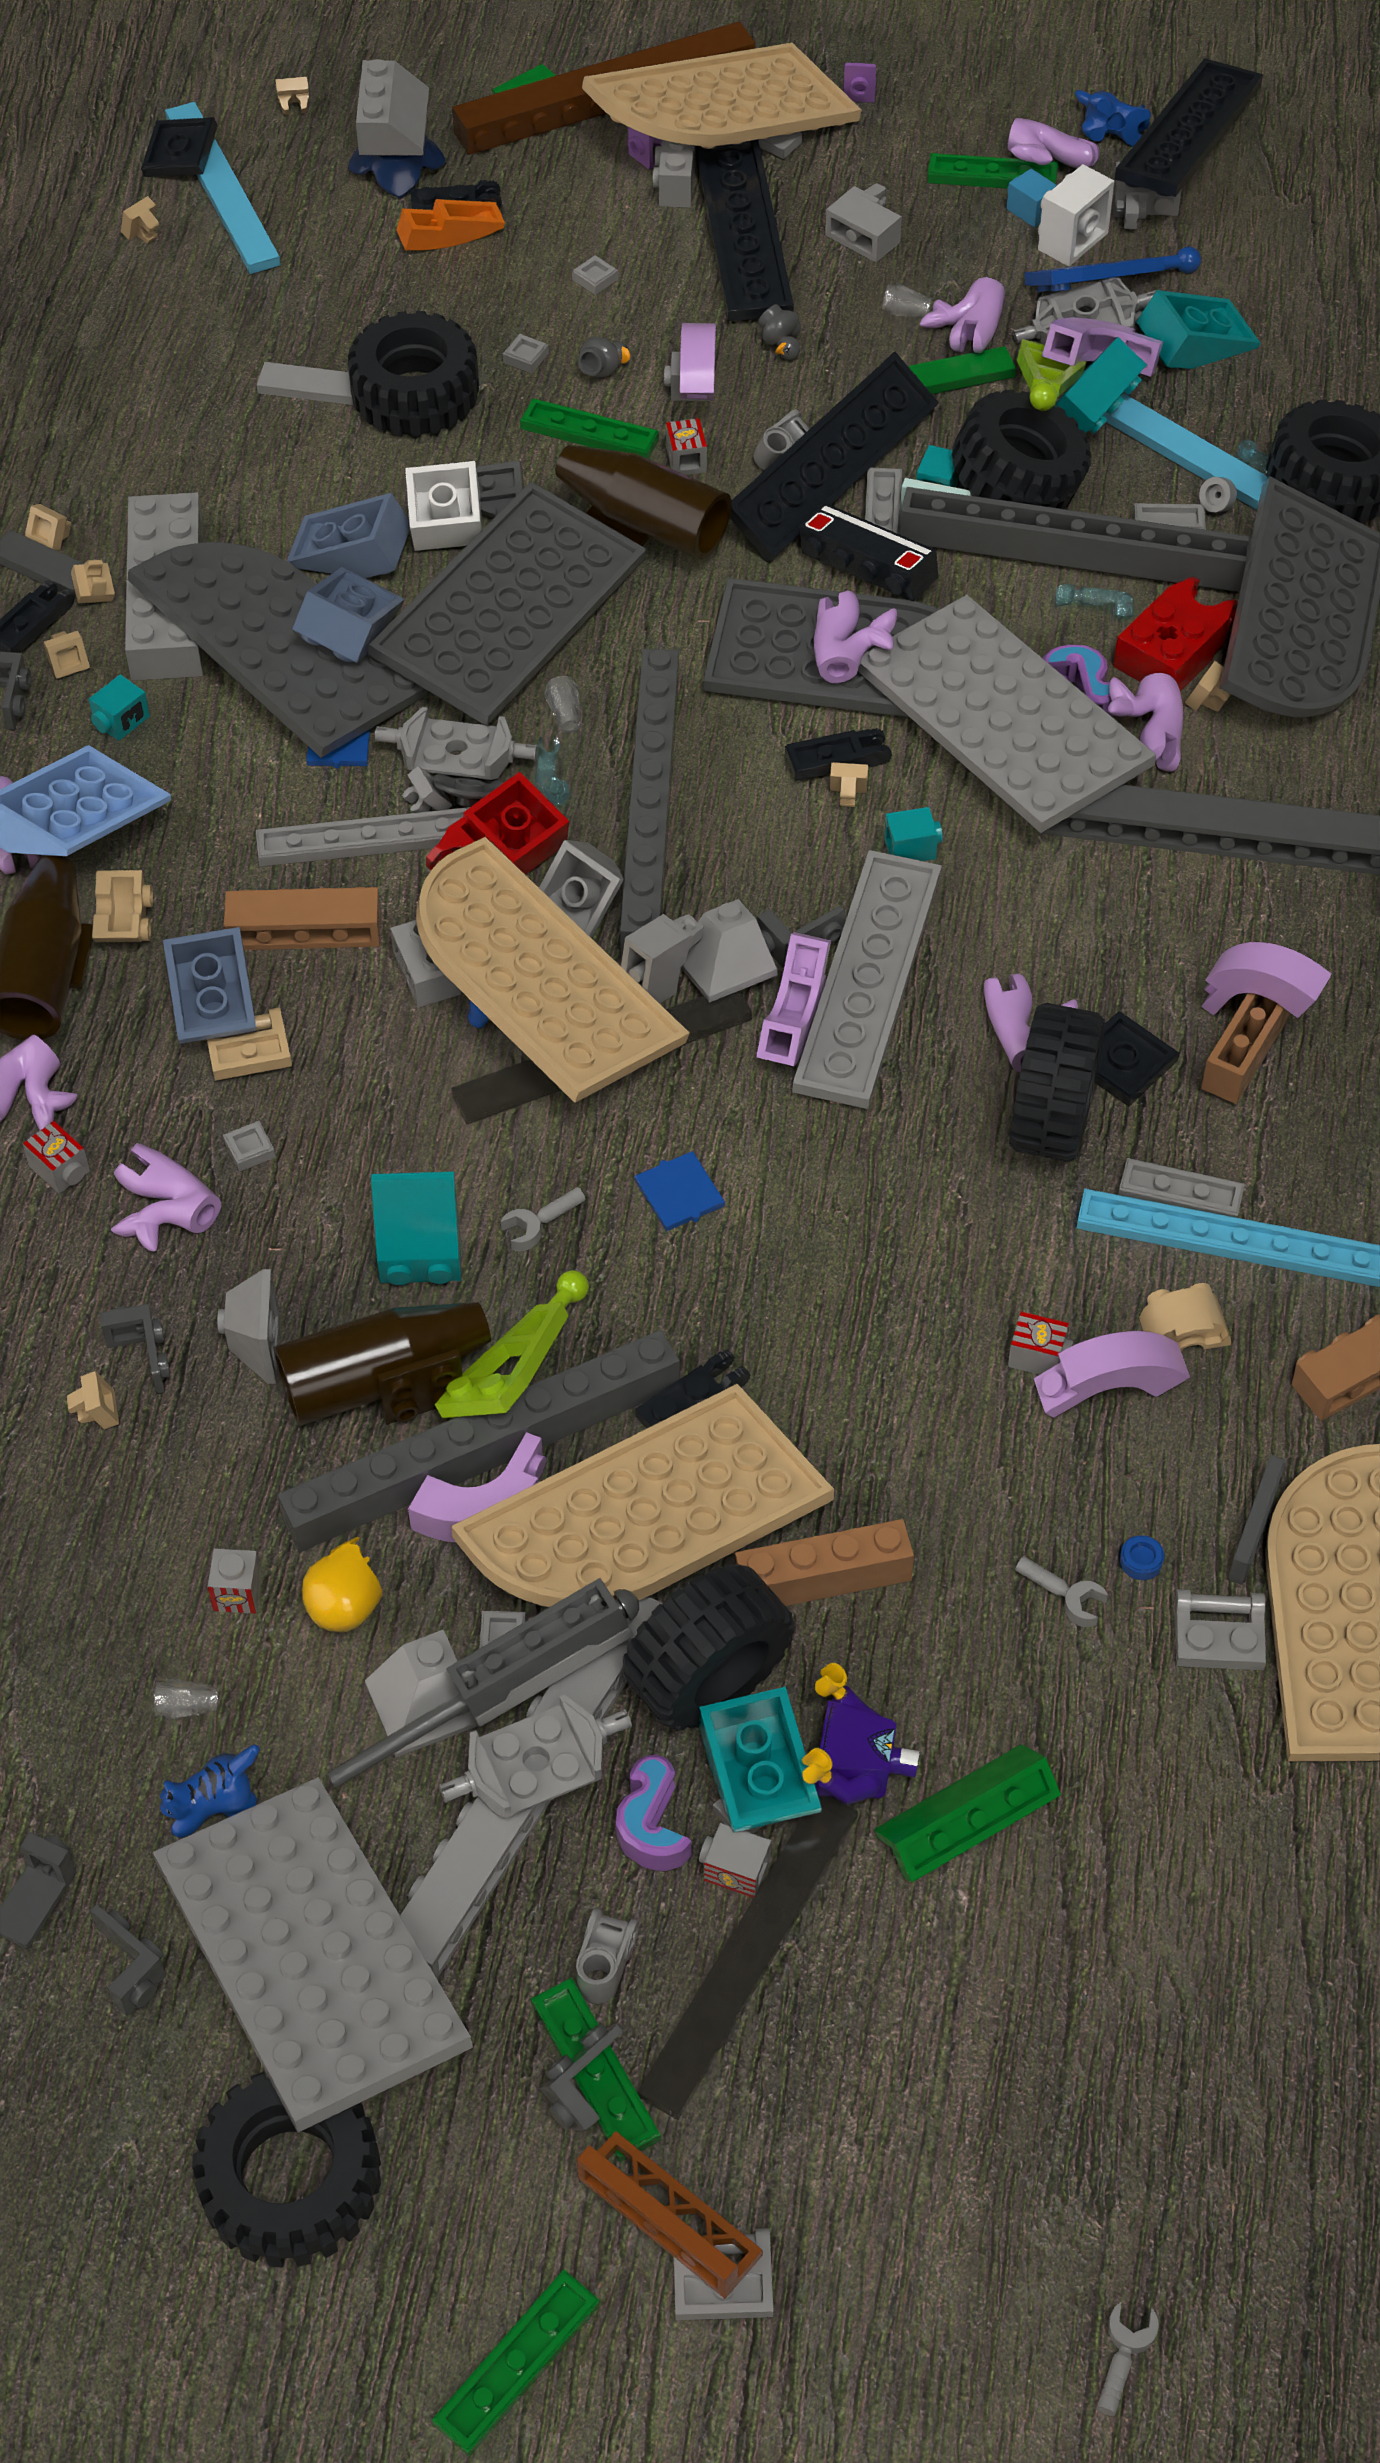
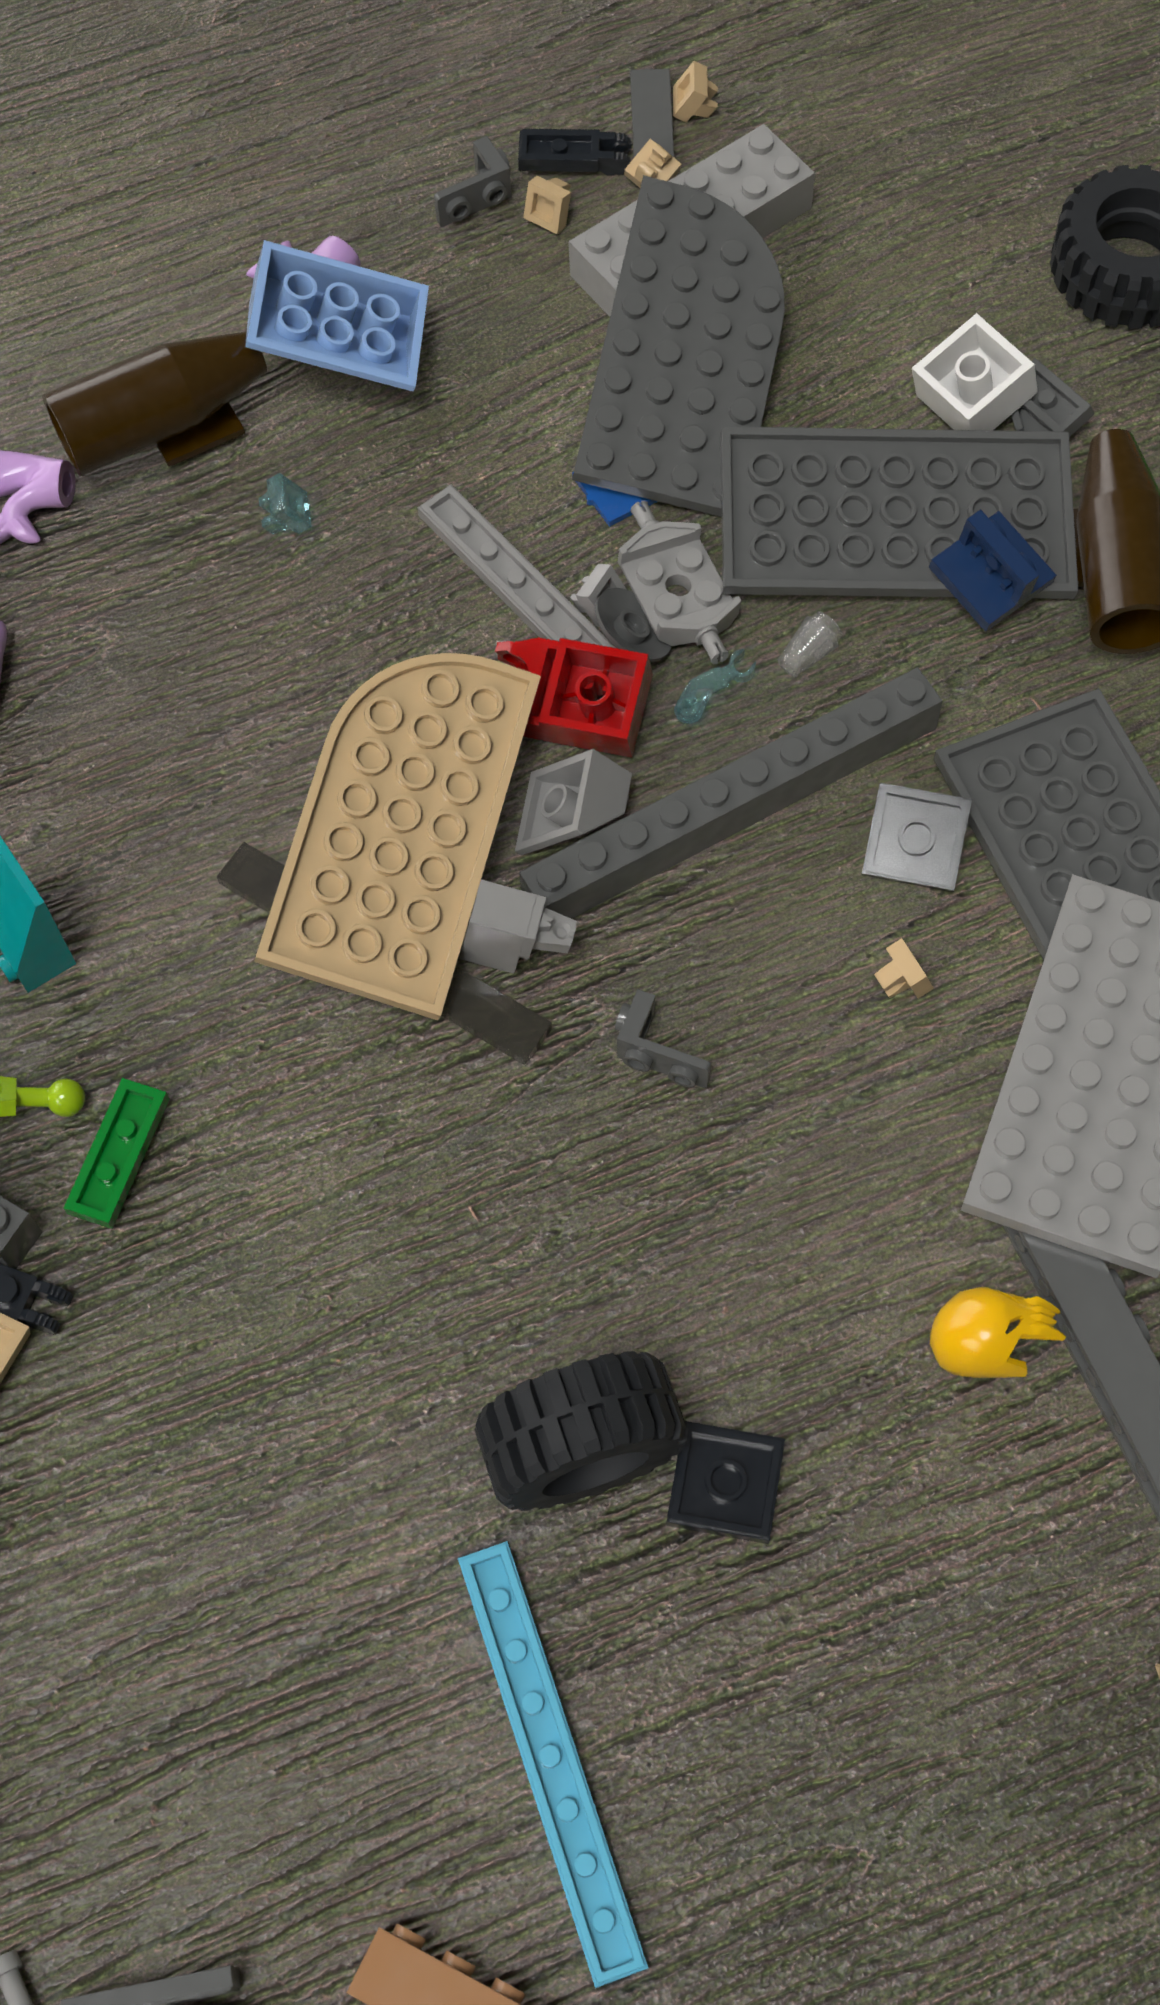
camera: 60 degrees right, 10 degrees up
(118, 707) = (513, 284): teal brick -> none
(122, 907) = (270, 439): tan cylinder -> none
(182, 926) = (286, 504): none -> clear light blue tile
(209, 985) = (216, 564): sand blue slope -> none
(249, 1146) = (71, 714): light grey tile -> none
(251, 1051) = (177, 646): tan plate -> none
(305, 383) = (1052, 163): light grey tile -> none
(305, 917) = (364, 587): medium nougat brick -> none
(346, 614) = (748, 381): sand blue slope -> none
(356, 536) = (875, 334): sand blue slope -> none
(531, 1223) = (129, 1014): light grey piece -> none
(600, 575) = (991, 569): none -> dark blue bracket
(641, 1275) = (116, 1153): none -> green plate
(679, 1191) = (256, 1127): blue piece -> none
(729, 953) = (578, 991): light grey slope -> none
(757, 725) = (916, 837): none -> tile
(798, 997) = (548, 1102): lavender arch -> none
(815, 755) = (940, 936): black hinge -> none
(834, 650) = (1065, 847): lavender piece -> none
(867, 980) = (650, 1147): light grey plate -> none
(912, 834) = (876, 1078): teal brick -> none
(1010, 1015) = (700, 1324): lavender piece -> none
(1037, 1343) = (256, 1613): light grey brick -> none
(1111, 1362) = (258, 1719): lavender arch -> none
(1127, 868) = (972, 1335): none -> yellow helmet
(1142, 1557) = (44, 1885): blue tile -> none
(1180, 1188) = (578, 1652): light grey tile -> none
(1187, 1317) = (389, 1762): tan cylinder -> none
(1243, 1047) = (850, 1609): medium nougat brick -> none
(1267, 971) = (904, 1589): lavender arch -> none

